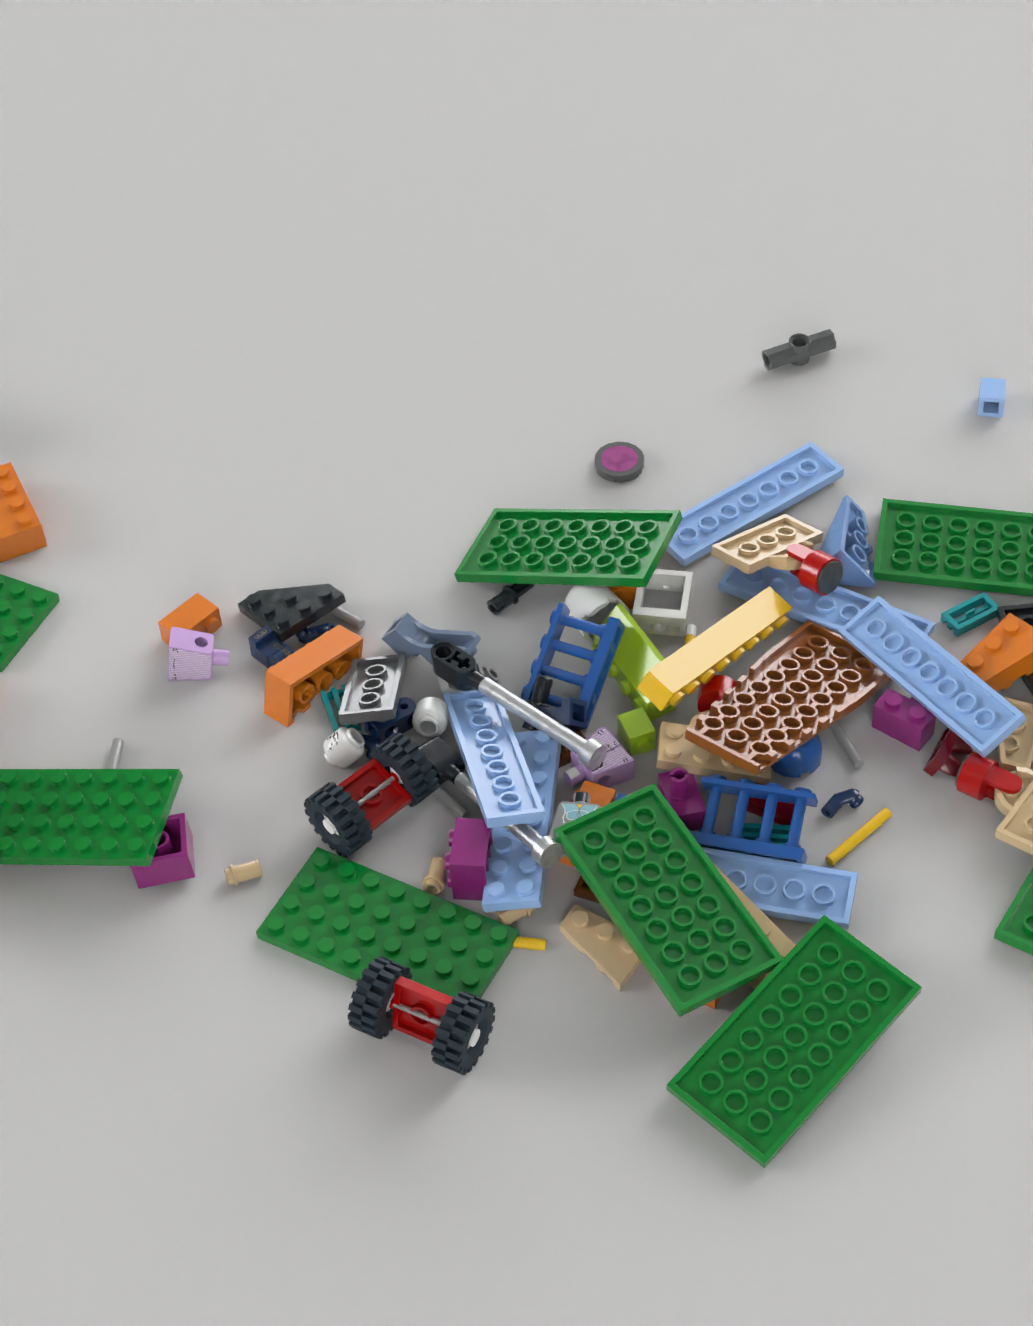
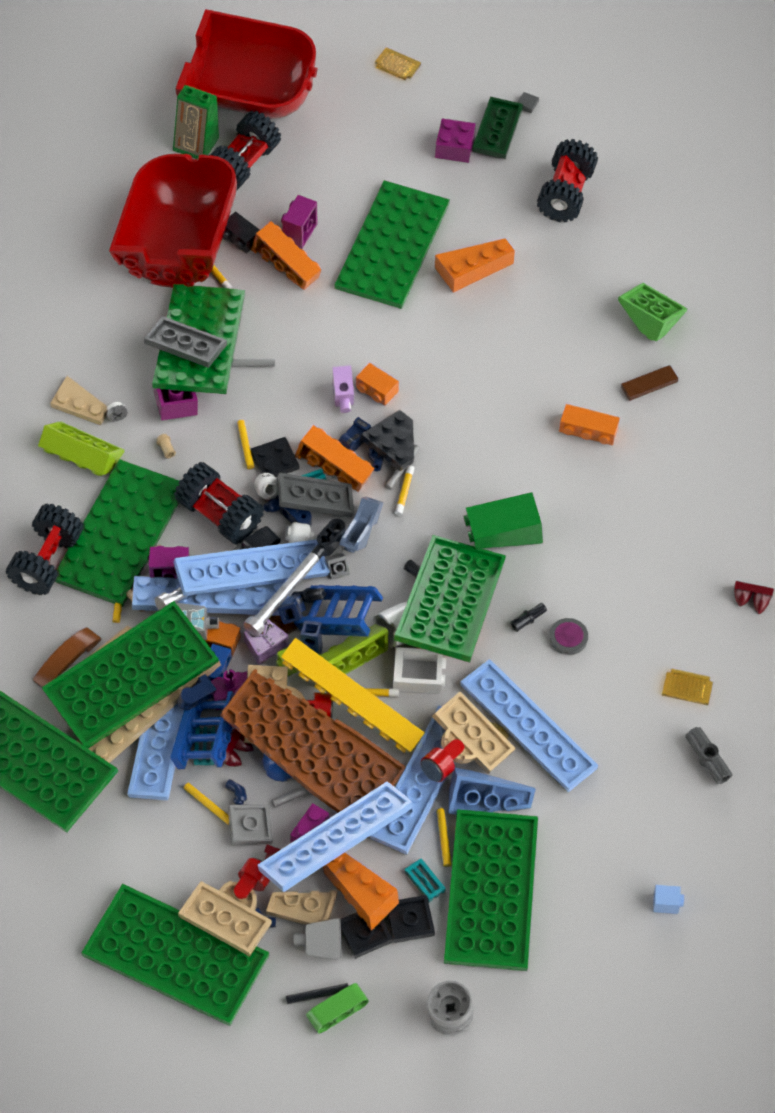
camera: 80 degrees right, 10 degrees up
(79, 815) = (185, 341): none -> dark grey plate
(132, 988) = (79, 402): none -> tan wing
(145, 347) = (651, 311): none -> bright green slope
(167, 931) = (116, 411): none -> flat silver piece
(226, 980) = (80, 448): none -> lime slope
(248, 366) = (649, 382): none -> reddish brown tile
(257, 779) = (245, 444): none -> yellow bar
(290, 746) = (275, 457): none -> black plate
(304, 419) = (589, 424): none -> orange brick
(373, 608) = (404, 490): none -> yellow bar
(451, 494) = (504, 522): none -> green slope
(579, 293) = (761, 595): none -> dark red tile
(587, 493) = (528, 617): none -> black axle
(610, 1002) = (66, 655): none -> dark orange slope
(613, 696) = (312, 636): none -> dark blue leg
(697, 366) = (687, 686): none -> clear yellow window
(701, 821) = (194, 696): none -> dark blue leg
(894, 787) = (250, 824): none -> light grey tile
(910, 593) = (443, 837): none -> yellow bar

